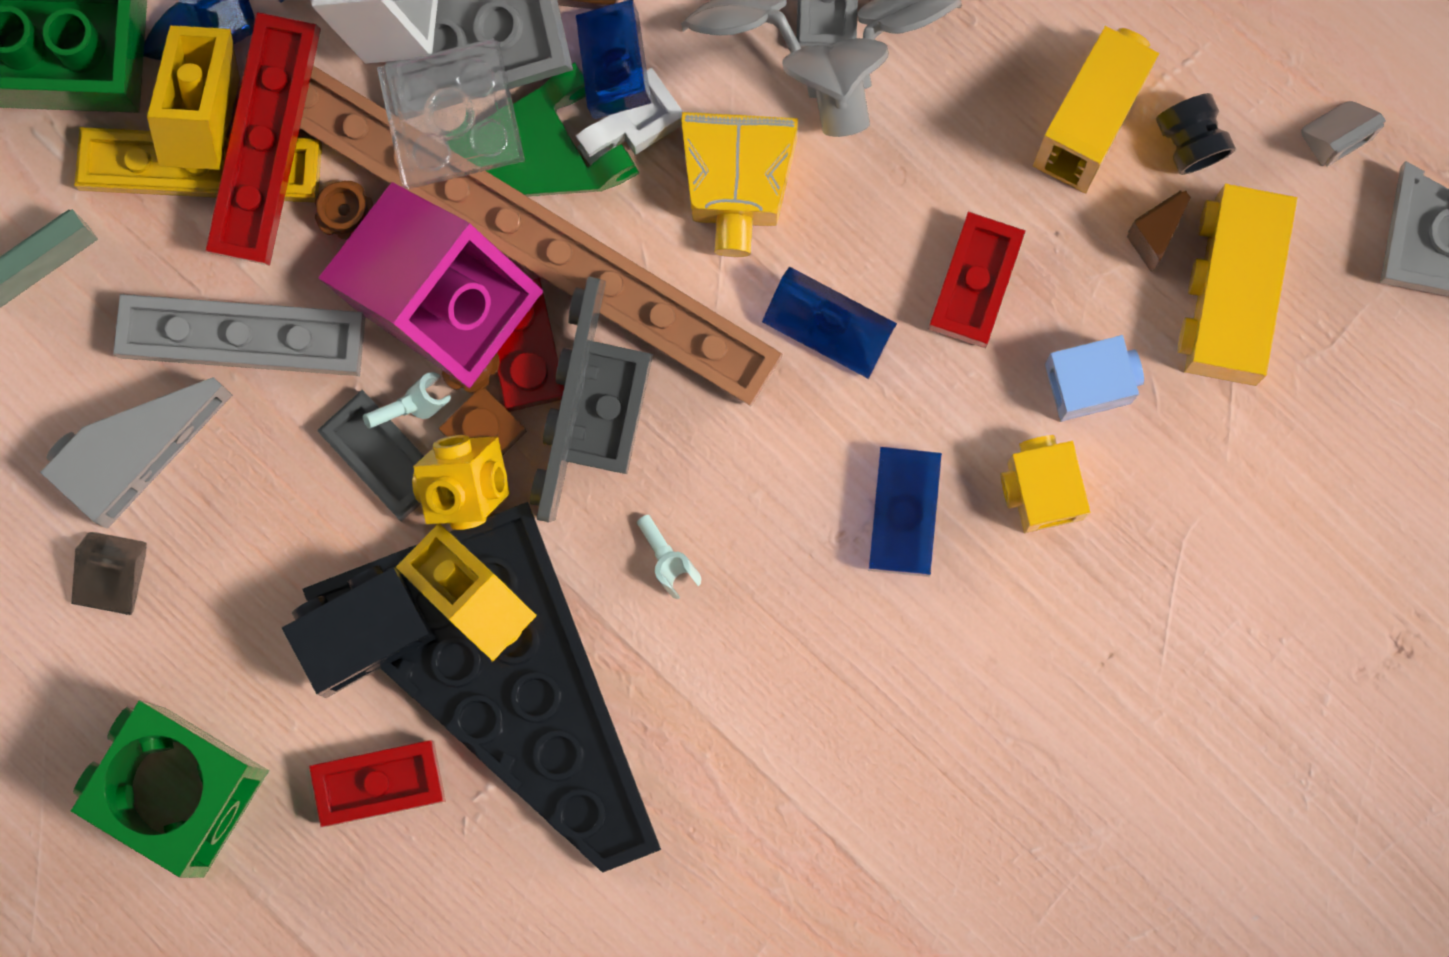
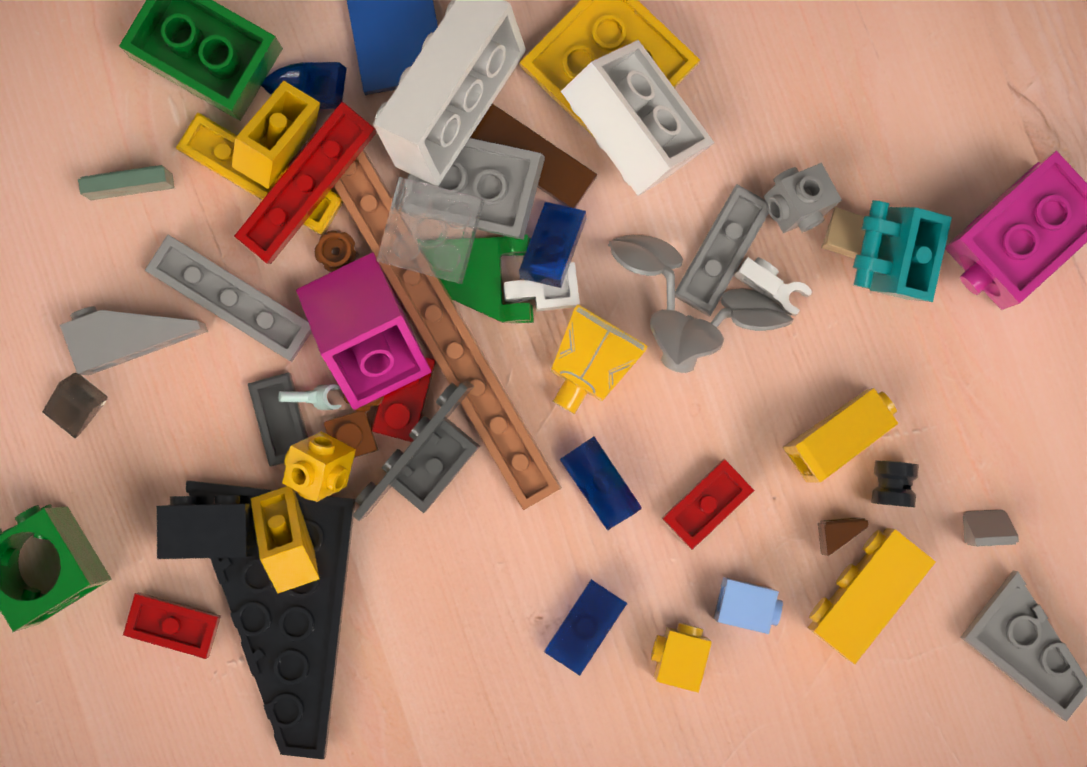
camera: 20 degrees right, 5 degrees up
(669, 563) = (422, 581): light aqua hand -> none

